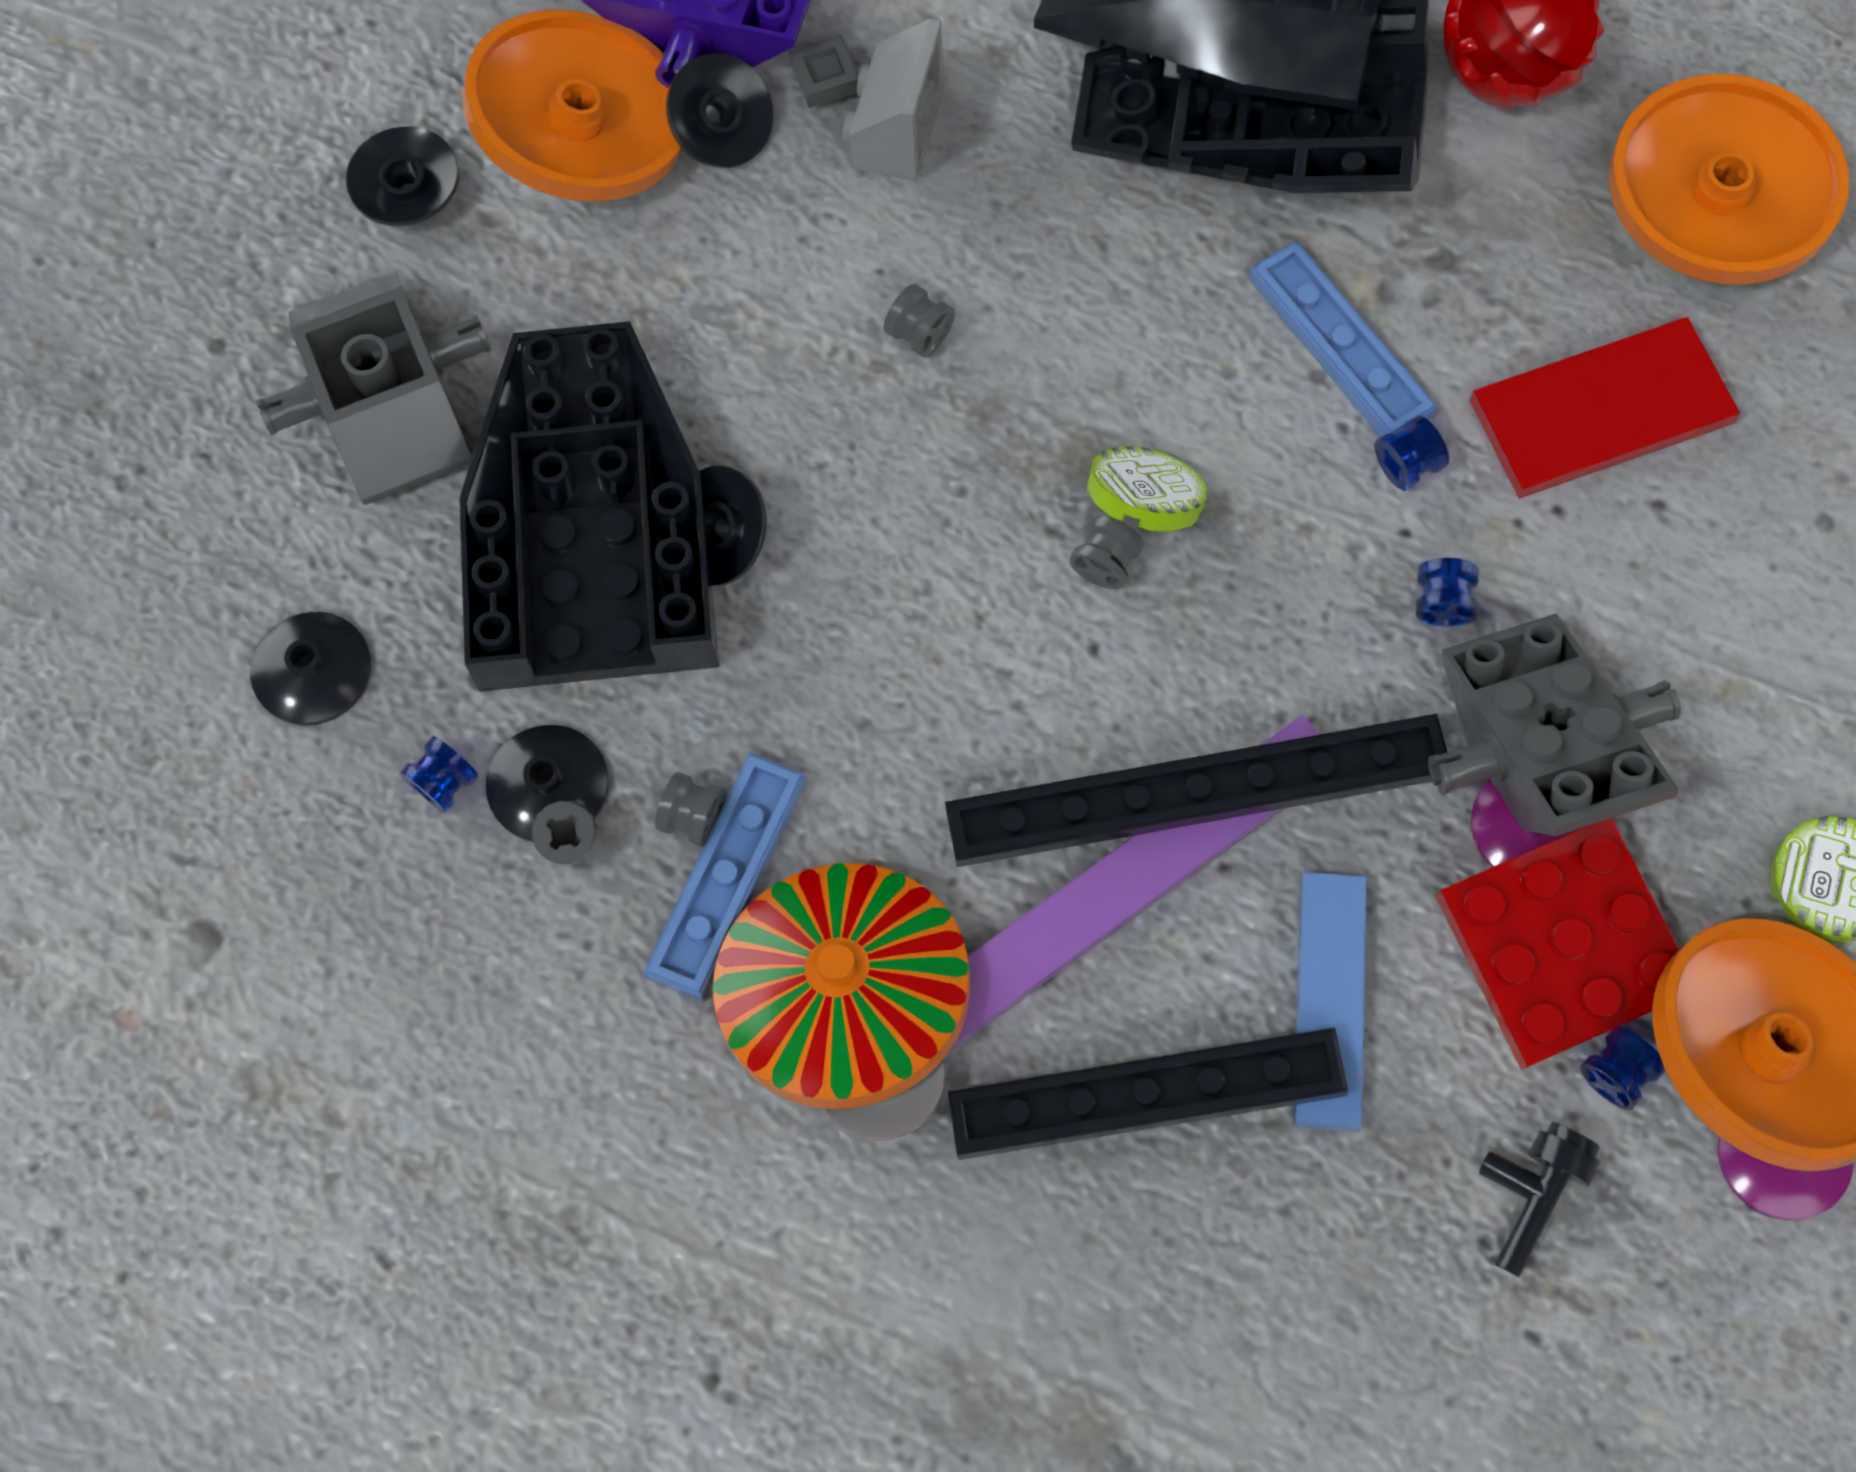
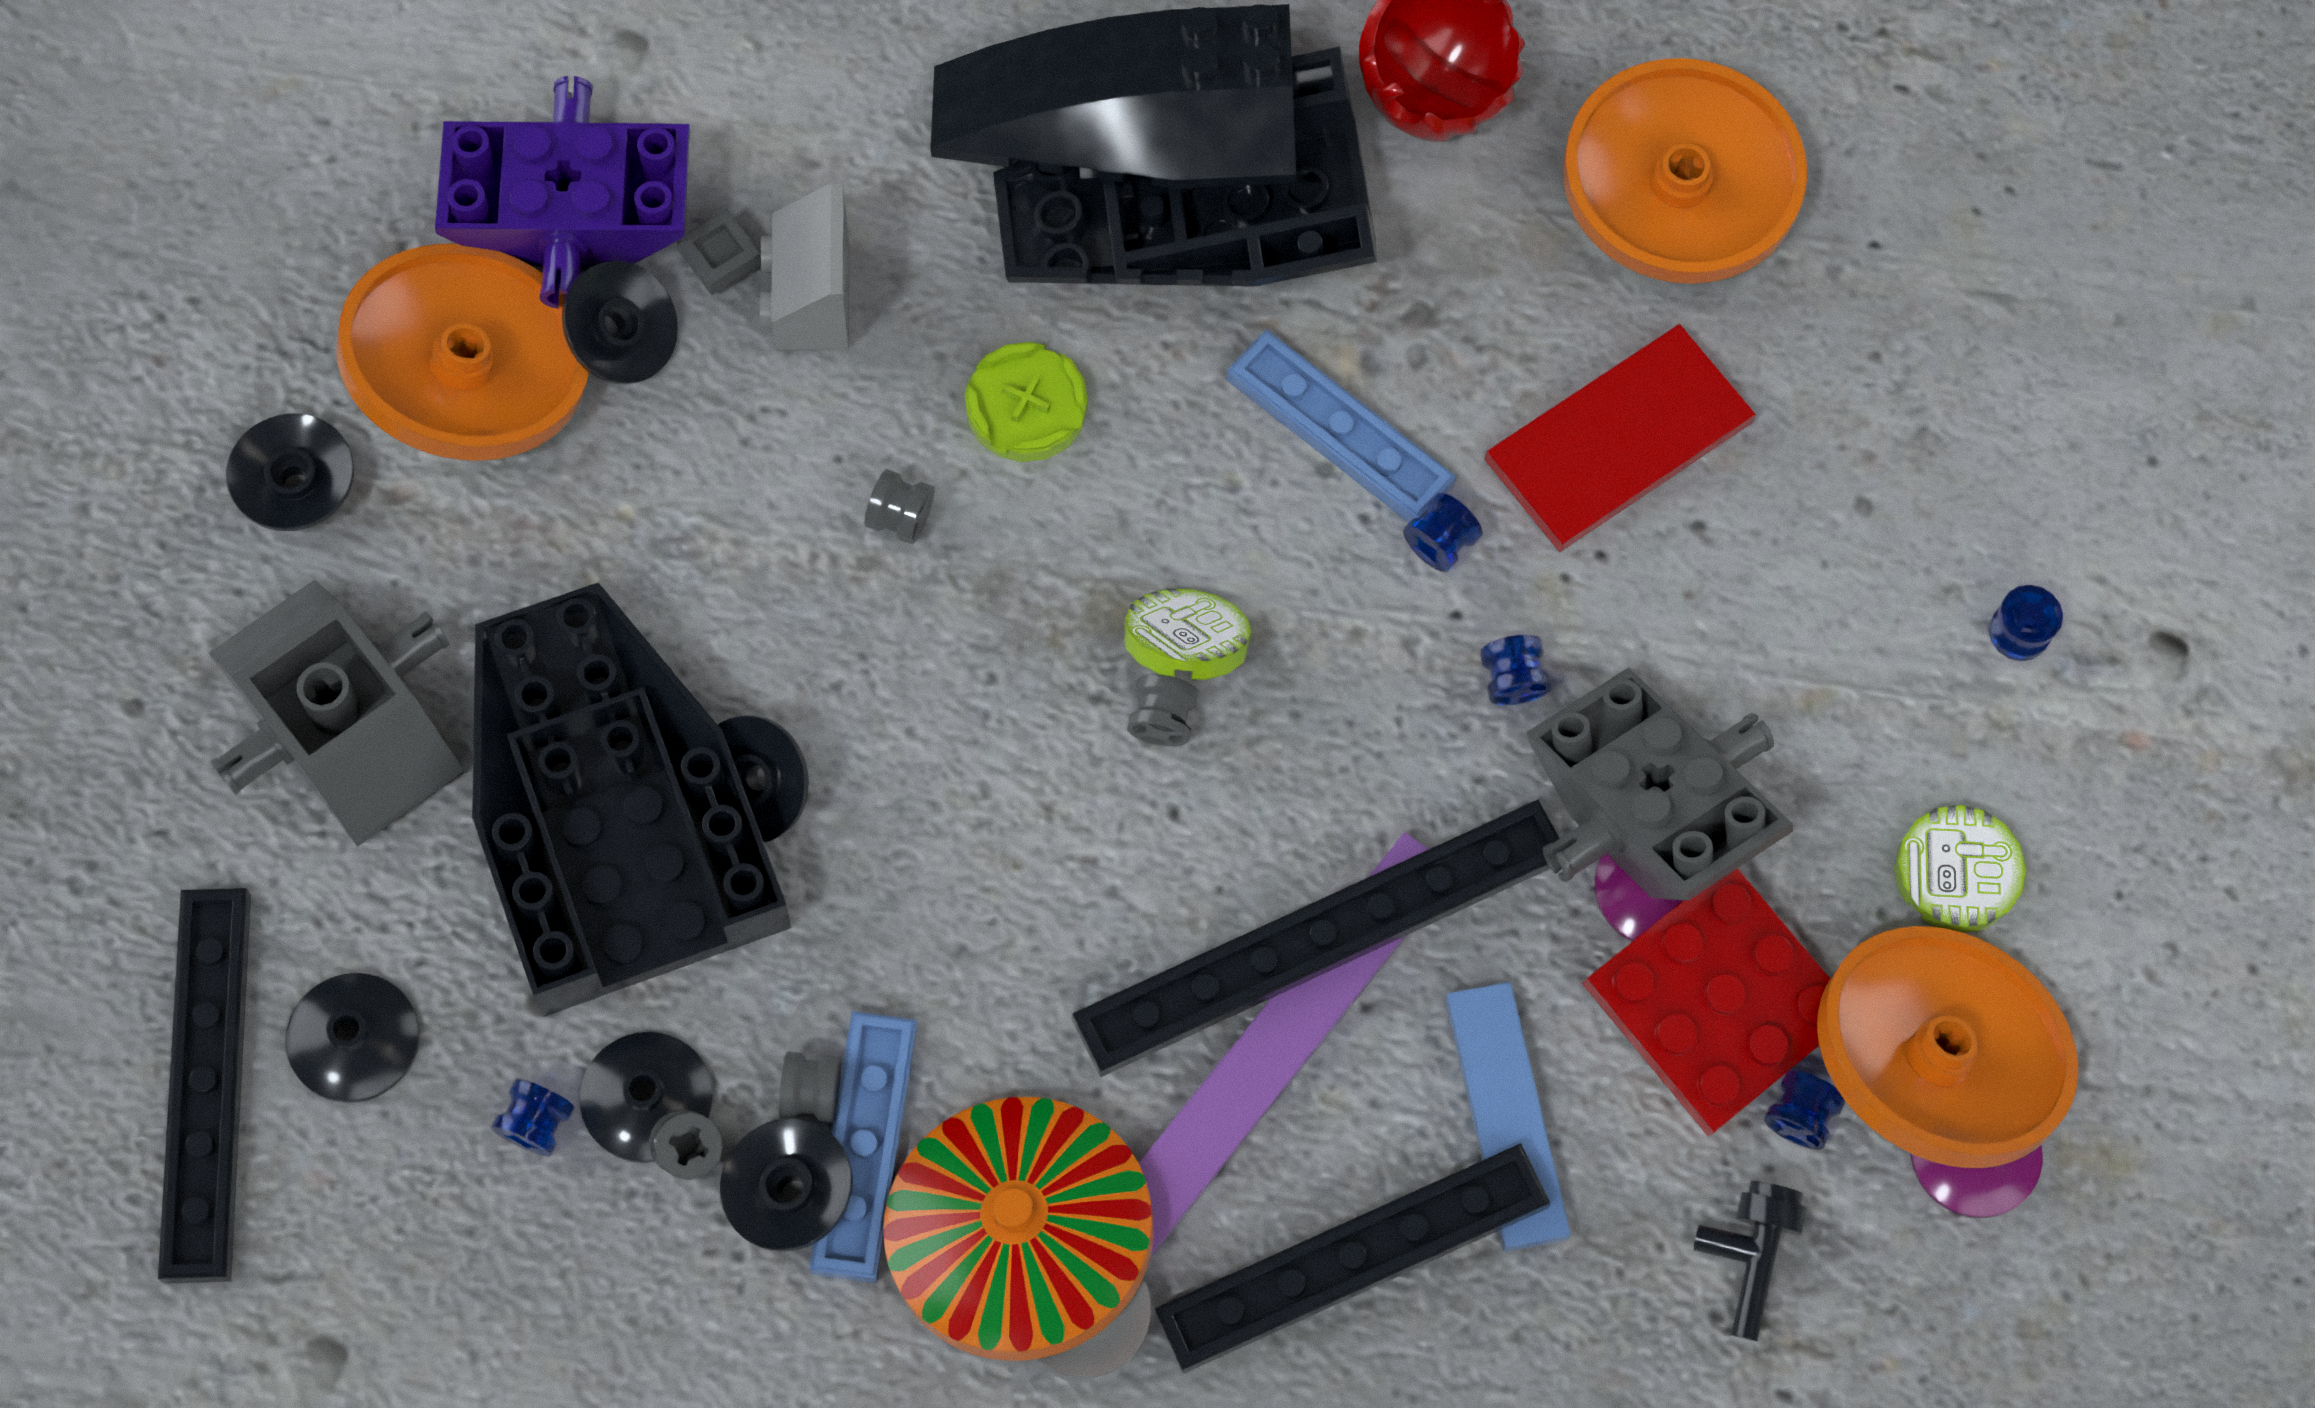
camera: 25 degrees left, 0 degrees up
(171, 680) = (205, 1087): none -> black tile
(626, 874) = (770, 1160): none -> black dish
(1060, 258) = (1026, 402): none -> lime tile

